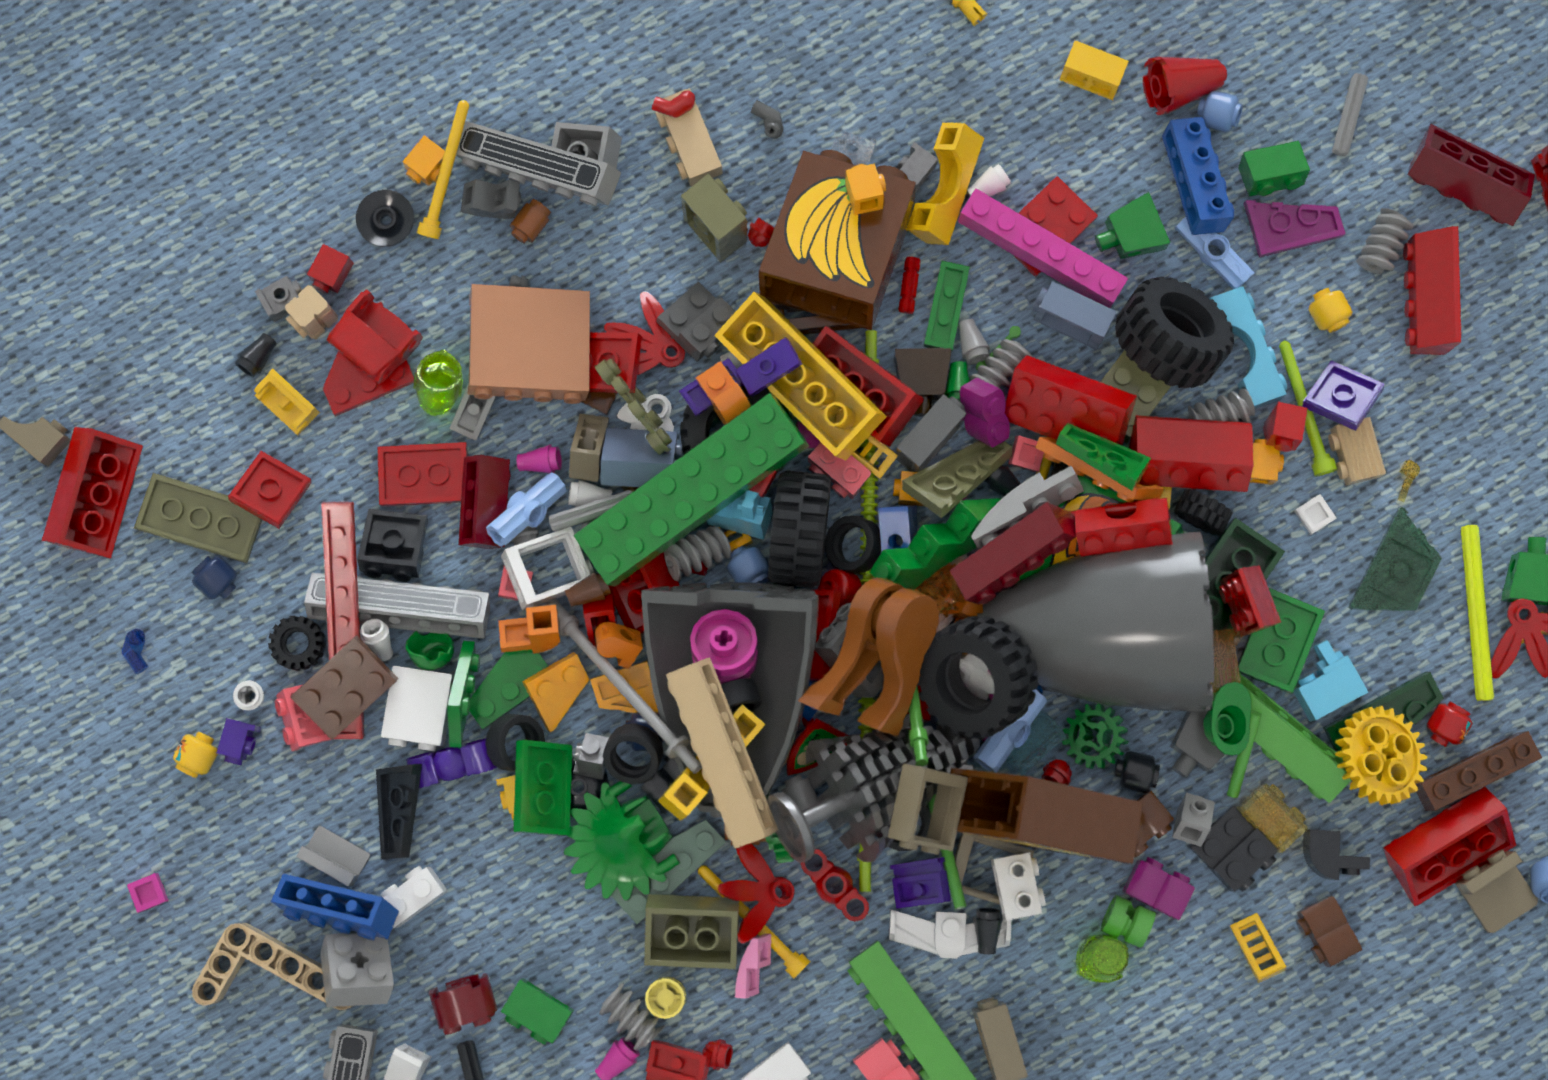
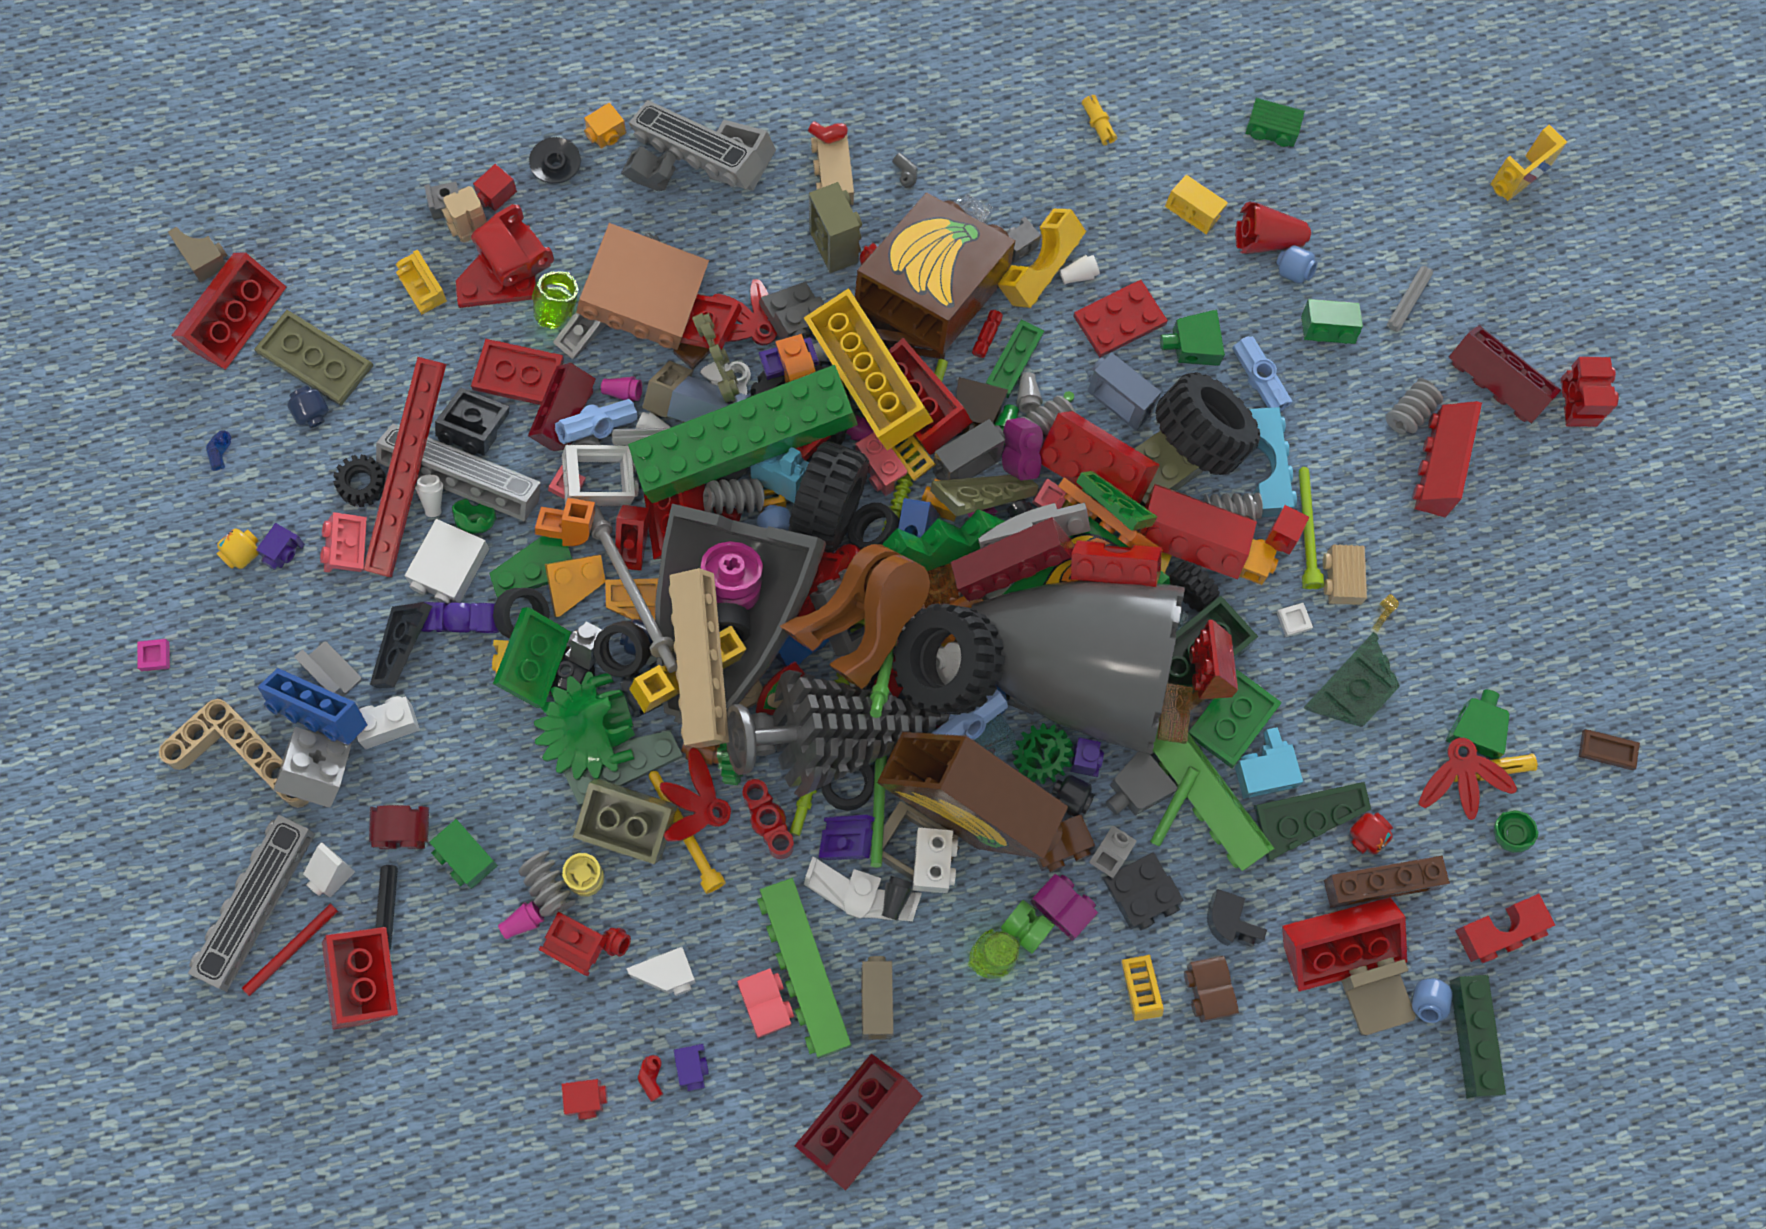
camera: 10 degrees right, 10 degrees down
(242, 693) = (302, 509): white cone -> none
(255, 356) = (406, 240): black cone -> none
(269, 489) = (381, 349): red plate -> none
(344, 687) = (386, 524): reddish brown plate -> none
(431, 226) = (592, 175): yellow piece -> none
(462, 687) = (486, 557): green wing -> none
(530, 221) = (676, 195): dark orange brick -> none
(588, 590) = (627, 500): reddish brown cone -> none
(618, 642) = (640, 552): orange leg -> none
(755, 957) = (676, 859): bright pink slope -> none
(769, 366) = (842, 349): dark purple plate -> none
(865, 188) = (969, 230): light orange brick -> none
(945, 810) = (887, 762): dark tan window -> none
(1041, 249) = (1109, 326): dark pink brick -> none
(1141, 726) = (1087, 757): none -> dark purple brick
(1198, 176) = (1263, 308): blue brick -> none
(1229, 719) = (1169, 764): green piece -> none
(1270, 814) = (1187, 870): clear yellow brick -> none
(1290, 227) = (1329, 374): magenta wing -> none
(1330, 310) = (1351, 450): yellow head -> none
(1343, 395) = (1345, 522): plate -> none
(1381, 755) = (1300, 839): yellow gear -> none
(1477, 613) = (1420, 745): neon yellow axle -> none

